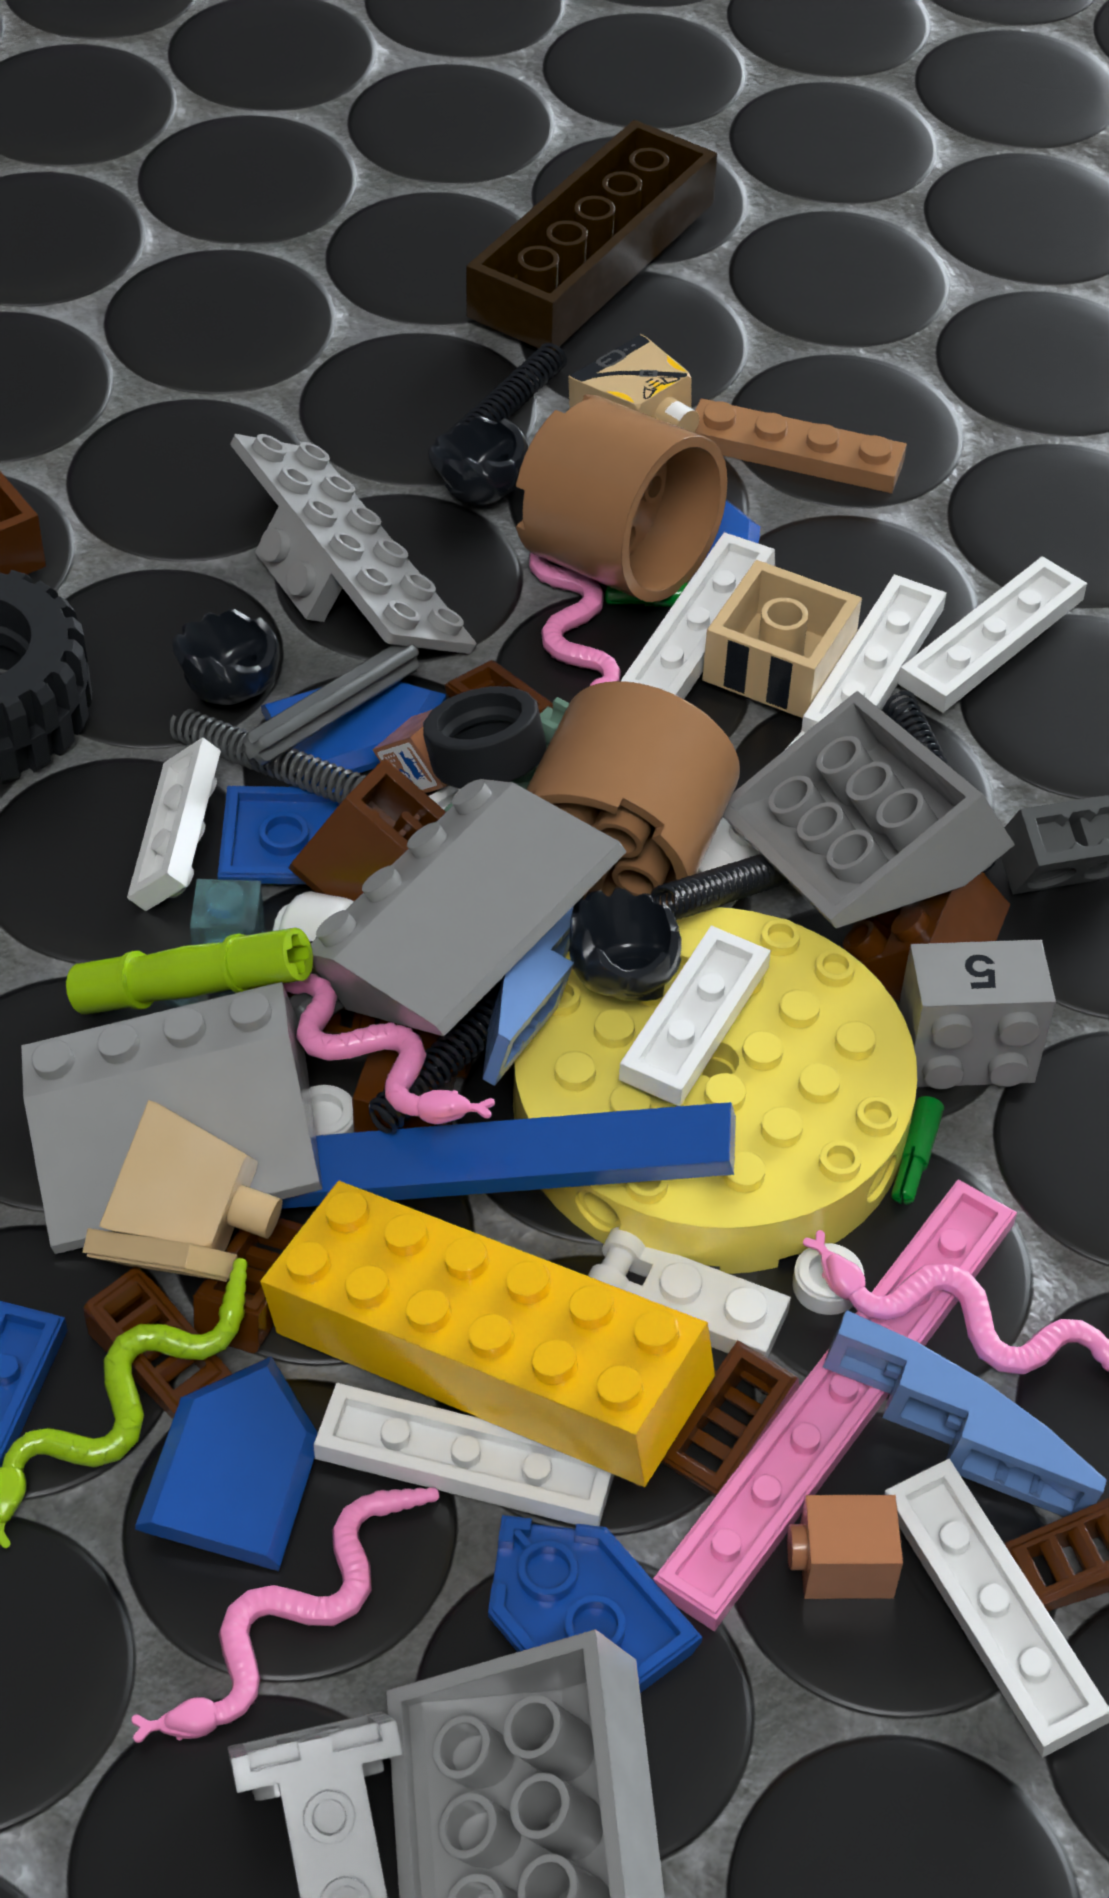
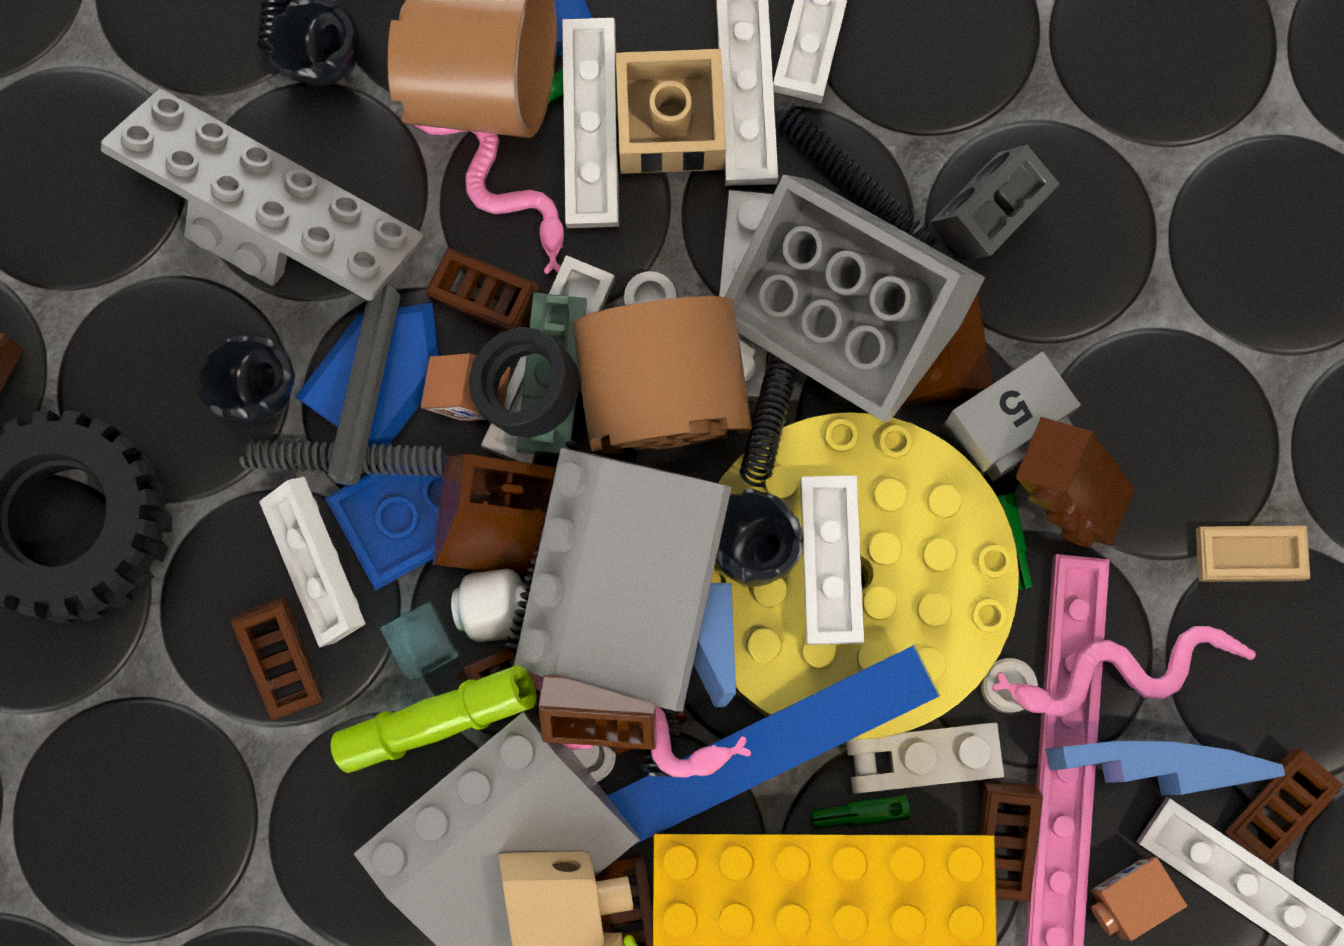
camera: 30 degrees left, 30 degrees up
(71, 844) = (259, 665): none -> reddish brown slope
(309, 1002) = (594, 716): none -> reddish brown slope
(1012, 1080) = (1075, 482): none -> reddish brown brick

